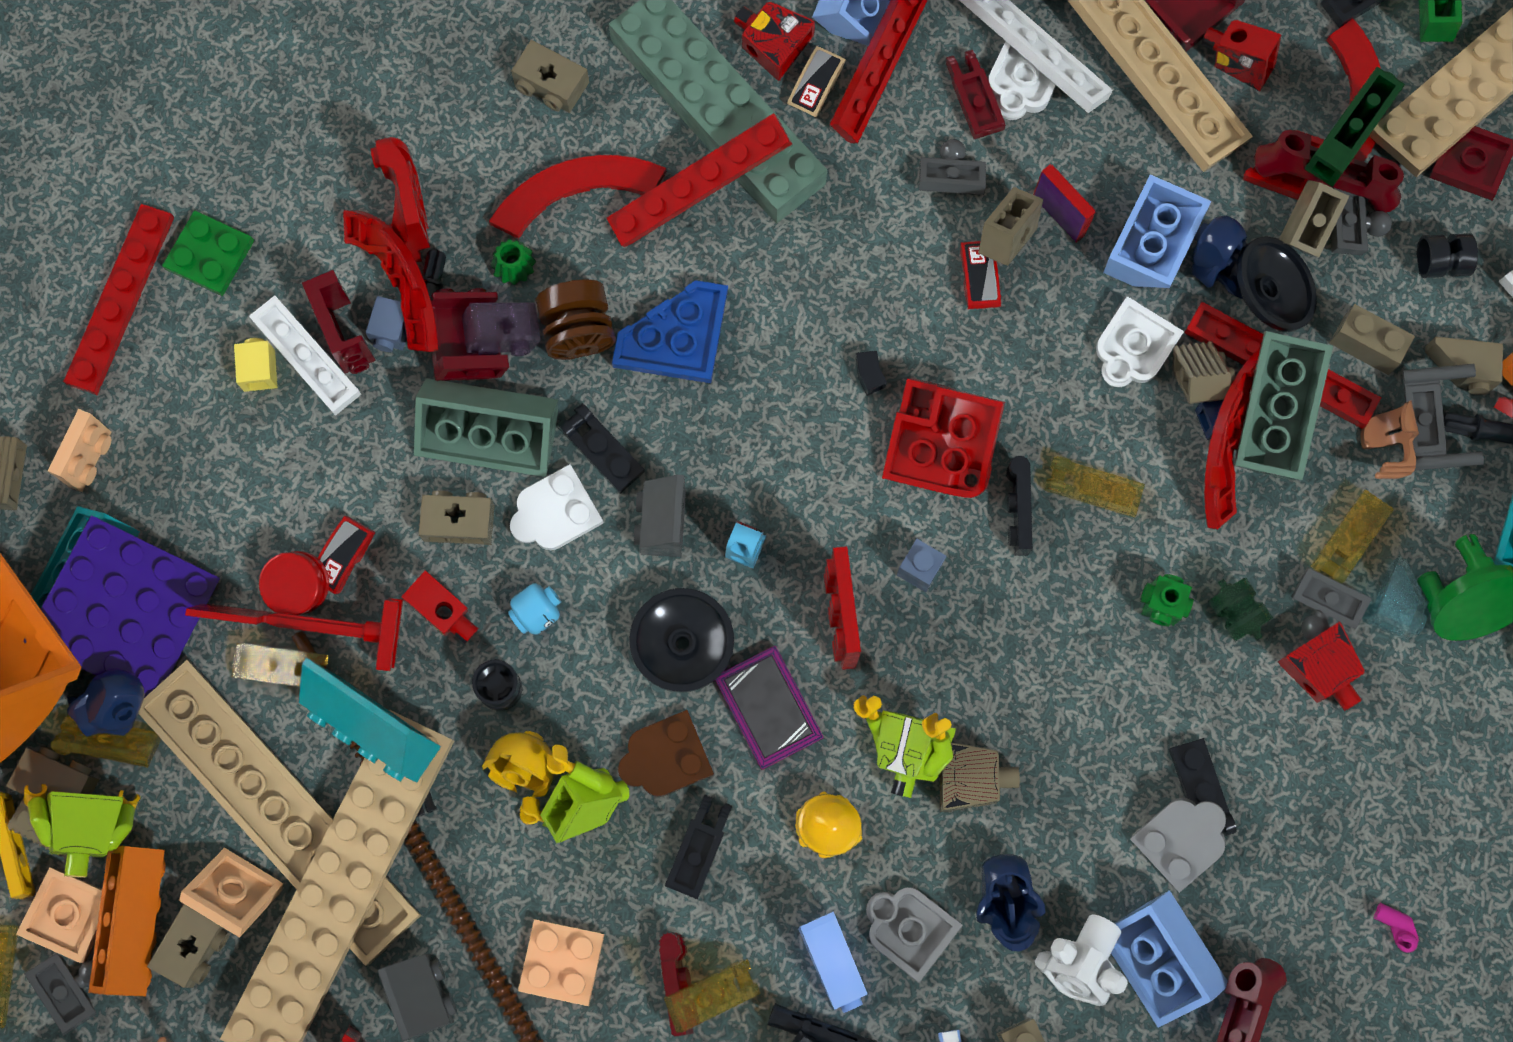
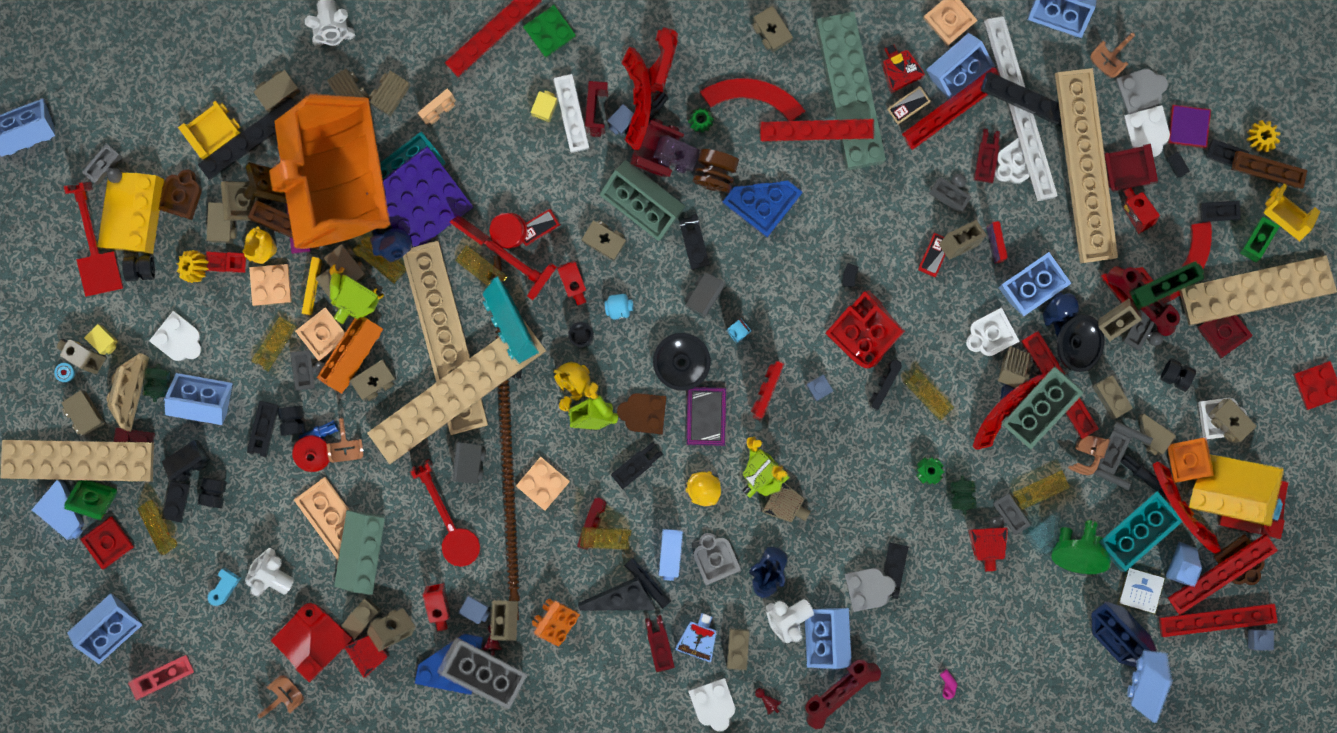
camera: 25 degrees right, 10 degrees up
(231, 892) = (405, 366): light nougat plate -> none
(554, 511) = (654, 261): white plate -> none

